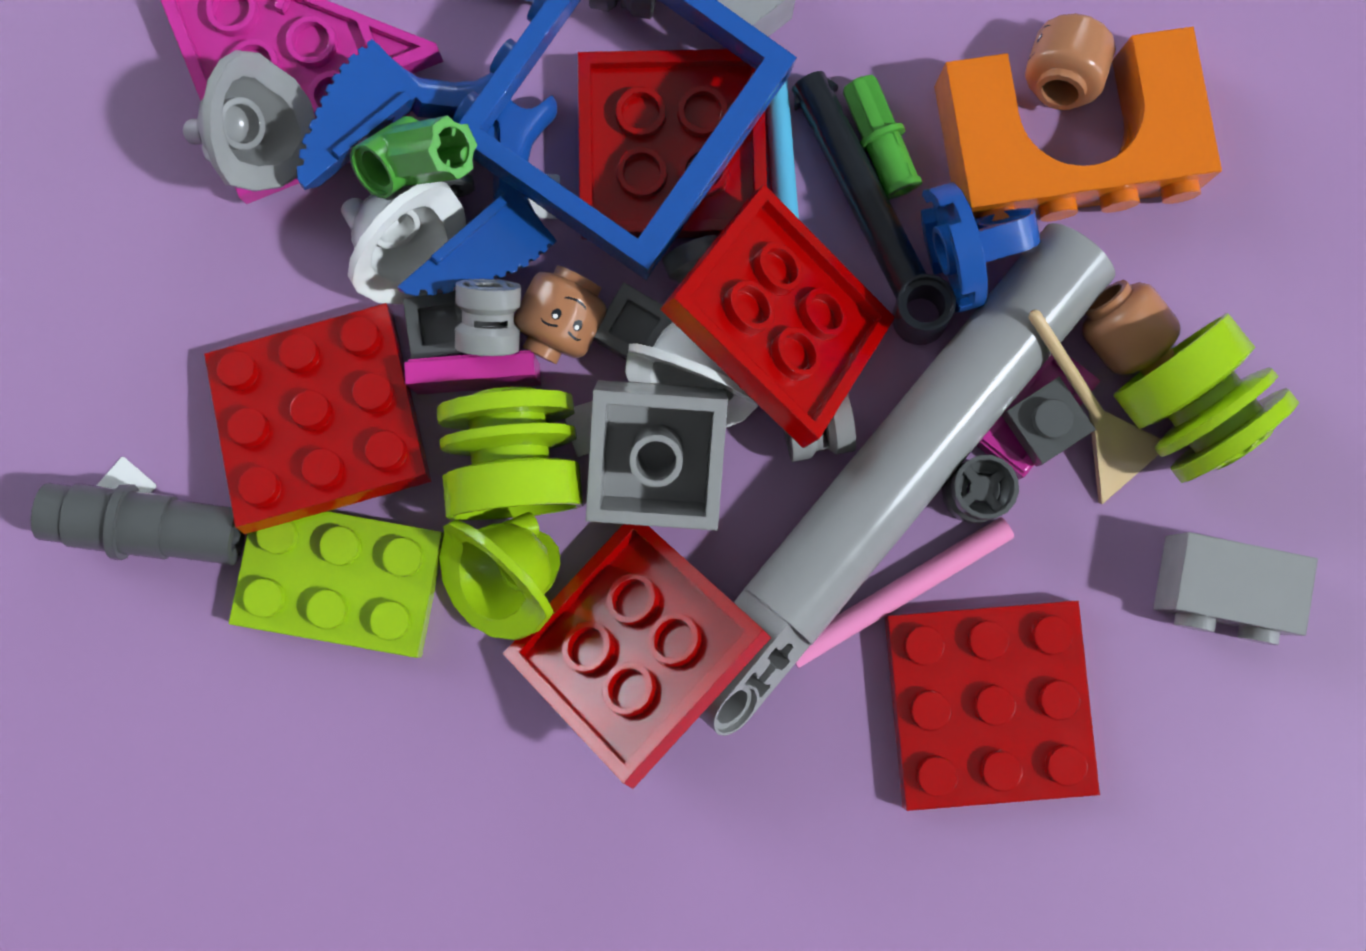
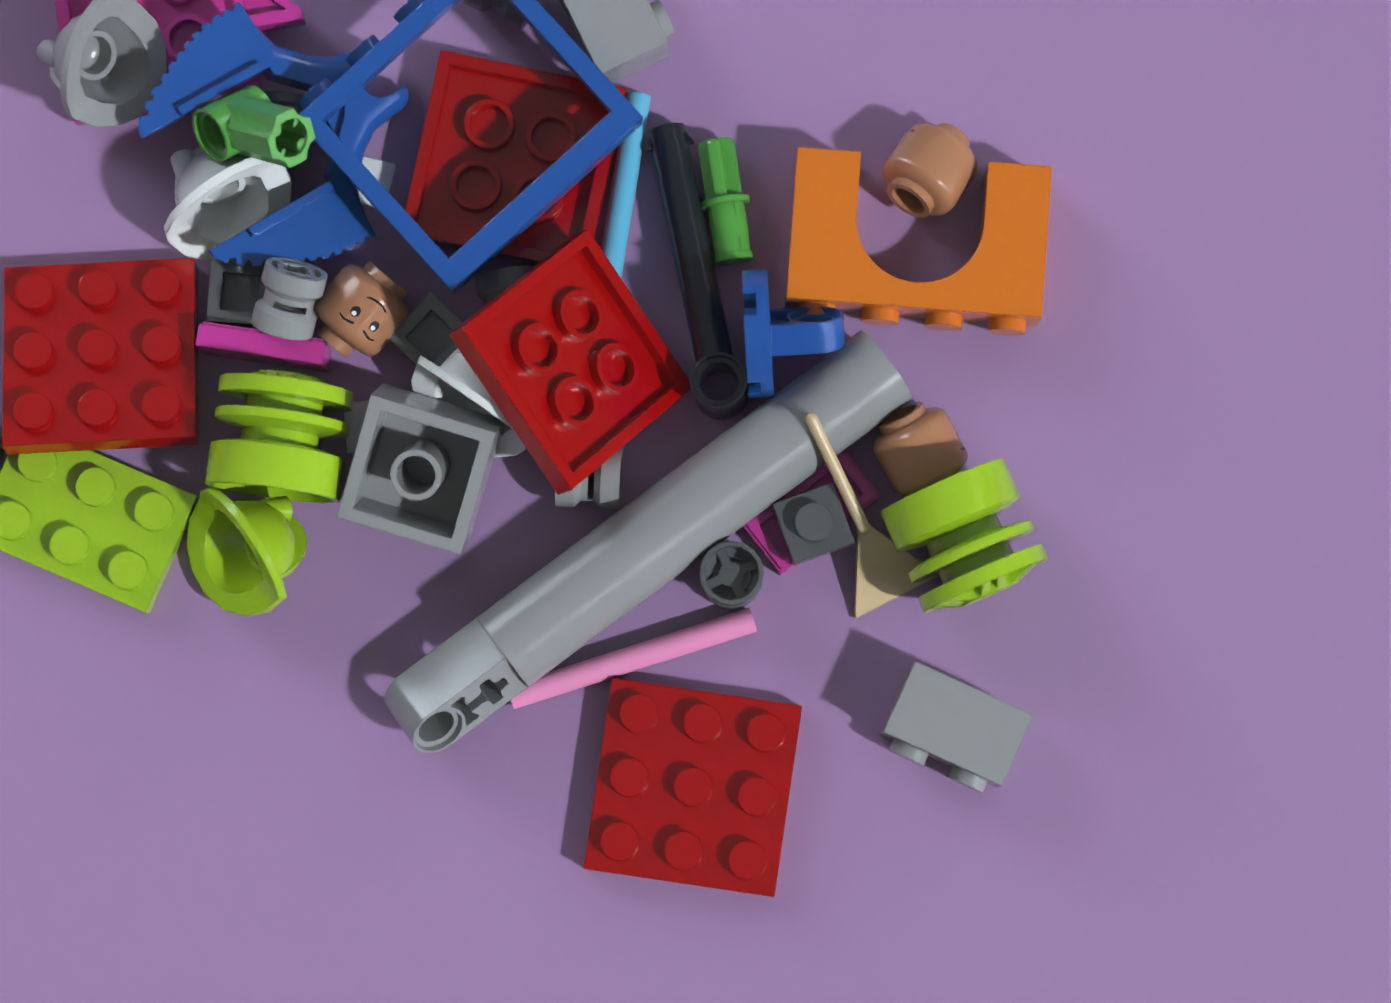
camera: 15 degrees right, 0 degrees up
(636, 650) = (356, 649): red plate -> none

